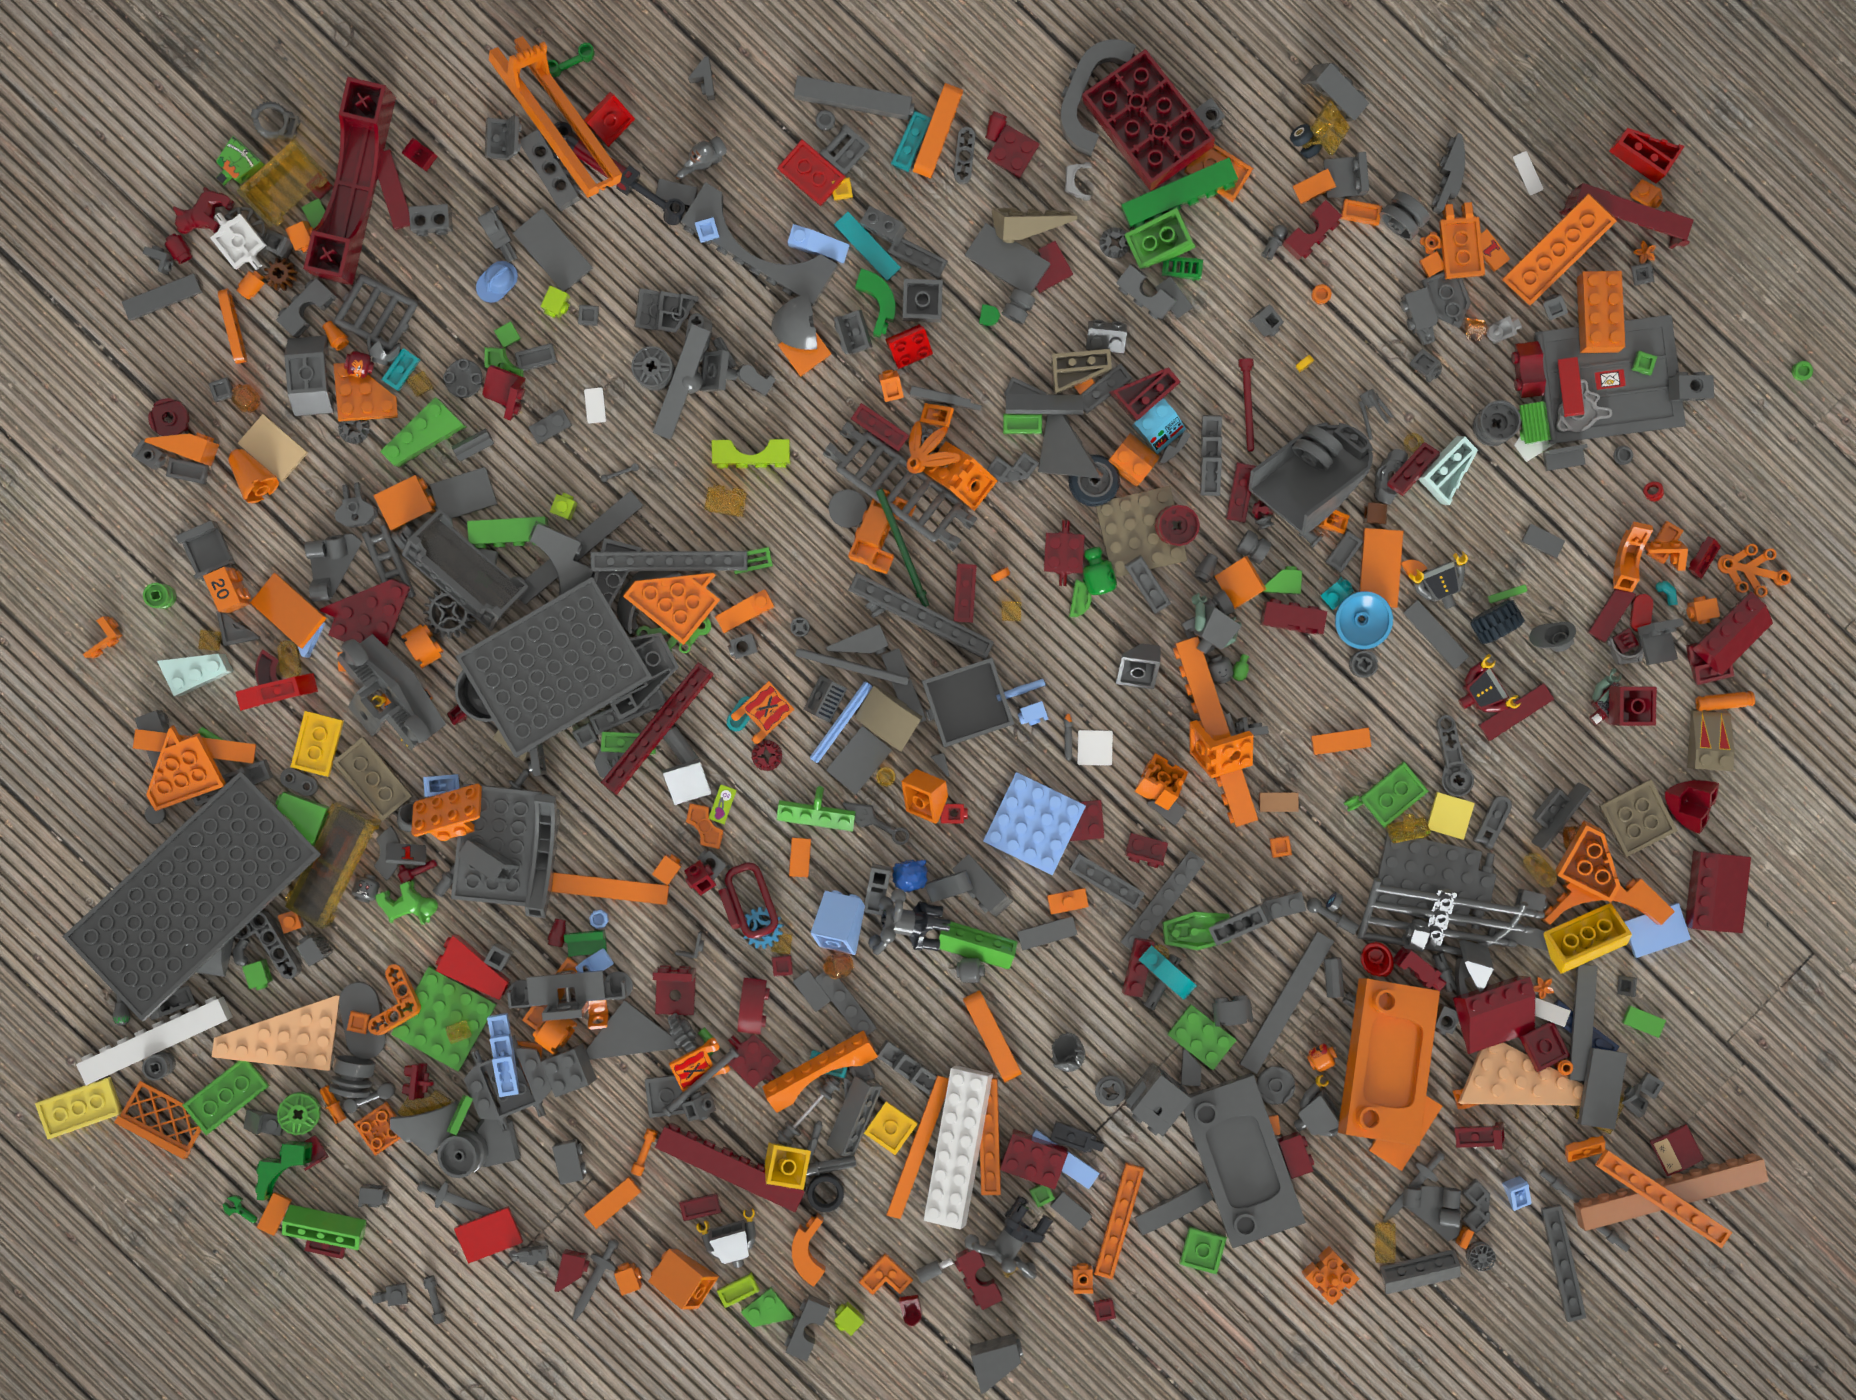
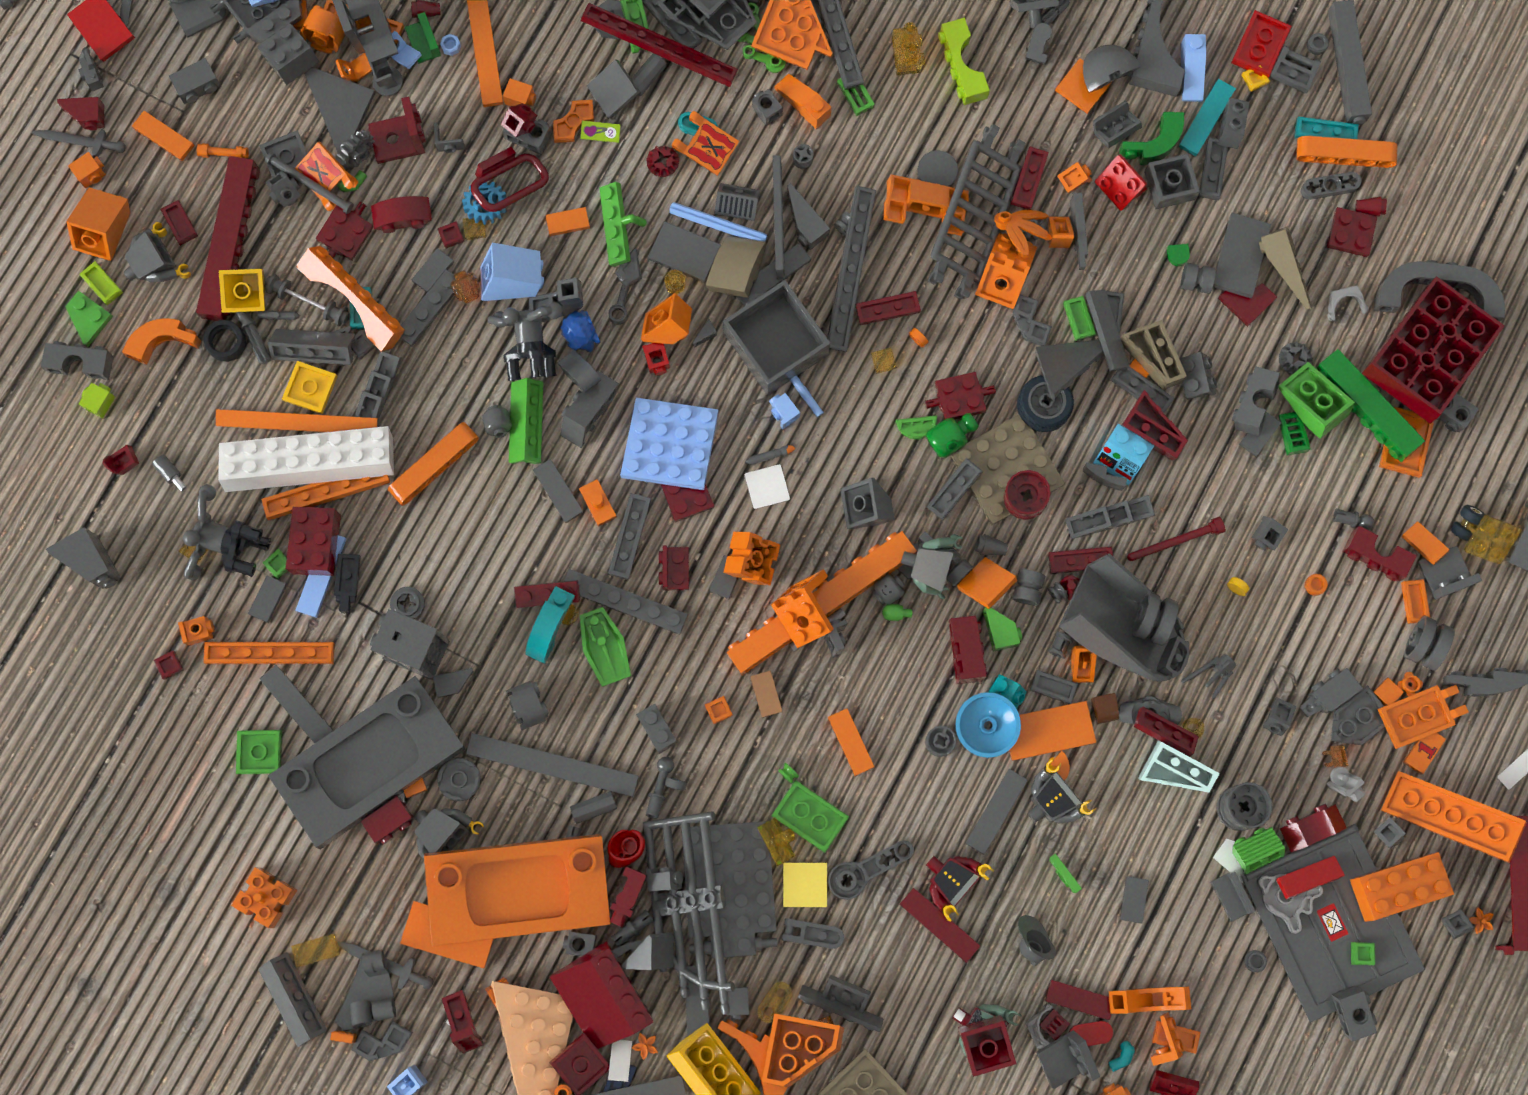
camera: 70 degrees right, 10 degrees down
(885, 1271) = (156, 426): orange tile -> none
(920, 593) = (873, 264): dark green bar -> none
(985, 1292) = (156, 530): dark red arch -> none
(1068, 1052) = (435, 545): dark grey hair -> none
(1134, 460) = (1080, 435): orange slope -> none
(1160, 986) = (528, 623): dark grey pin -> none
(1201, 1037) = (488, 684): bright green plate -> none
(1240, 923) = (624, 683): dark grey brick -> none
(1322, 1057) = (502, 819): orange head -> none
(1480, 1255) = (326, 1062): dark grey wheel -> none
(1497, 622) = (1031, 869): black wheel -> none
(1653, 497) = (1225, 1014): red piece -> none

